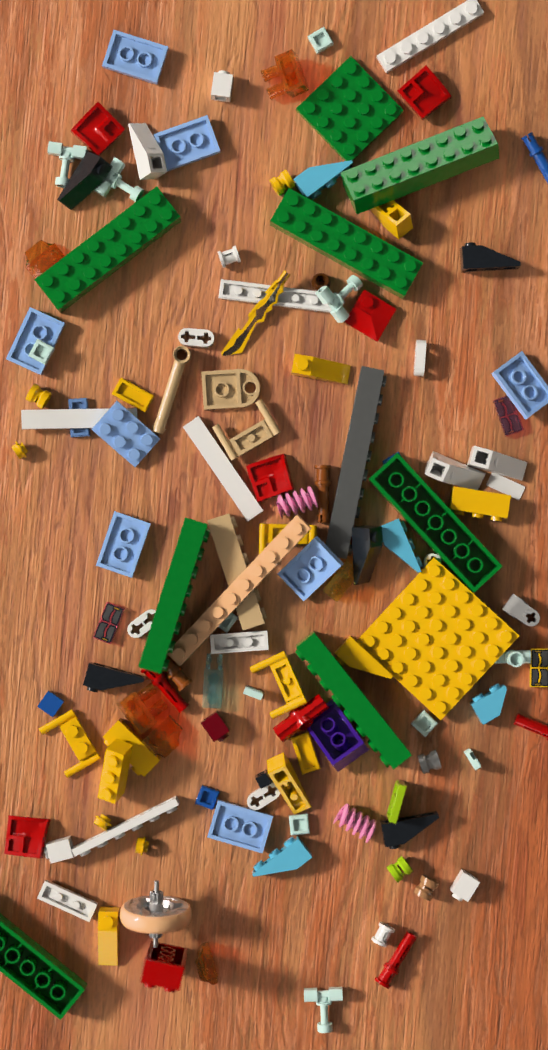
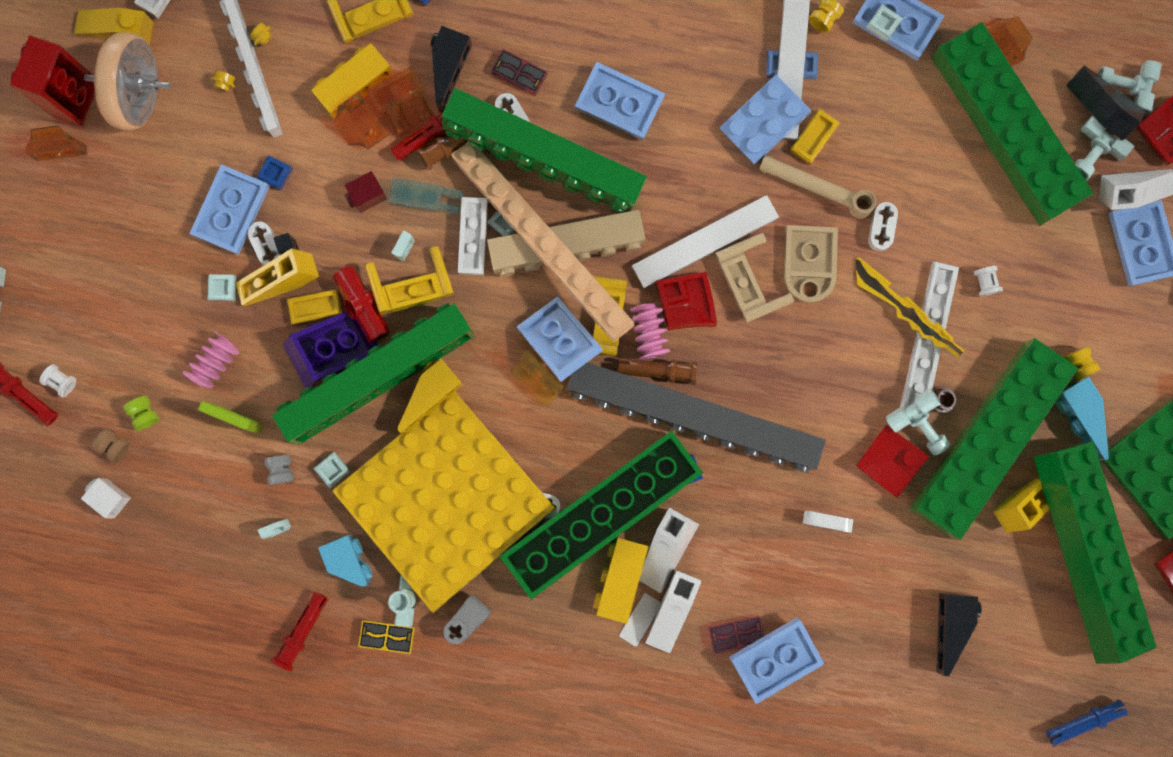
camera: 100 degrees right, 5 degrees down
(115, 771) = (323, 52): yellow brick -> none
(288, 858) = (176, 264): medium azure slope -> none
(320, 369) = (826, 384): yellow slope -> none
(366, 550) = (573, 416): black slope -> none
(397, 542) = (581, 460): medium azure slope -> none
(405, 828) = (194, 428): black slope -> none

